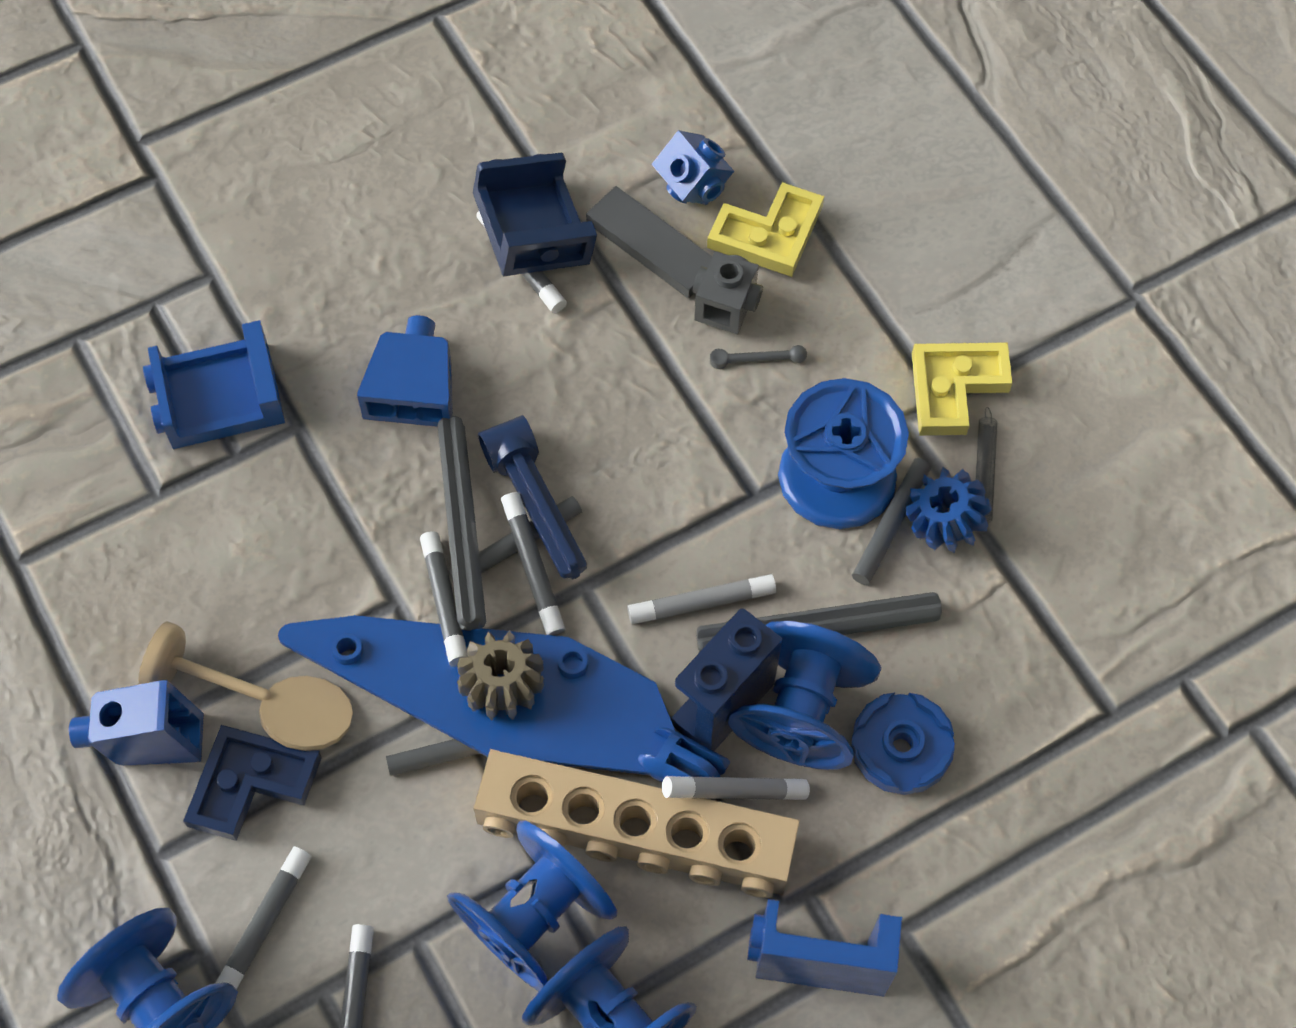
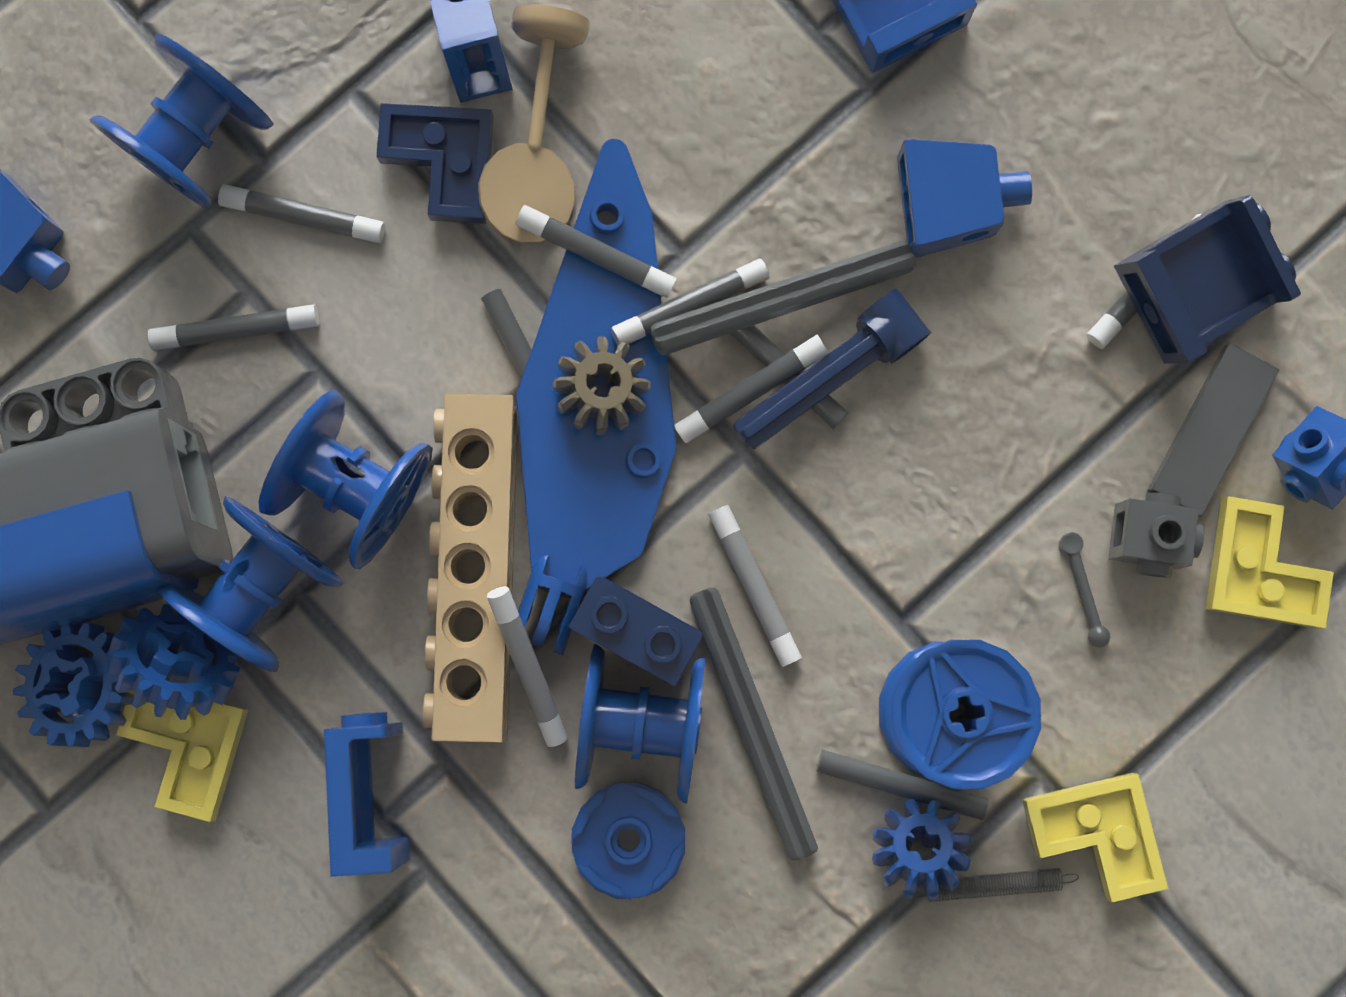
camera: 80 degrees right, 20 degrees up
(376, 663) = (595, 251): none -> dark grey bar

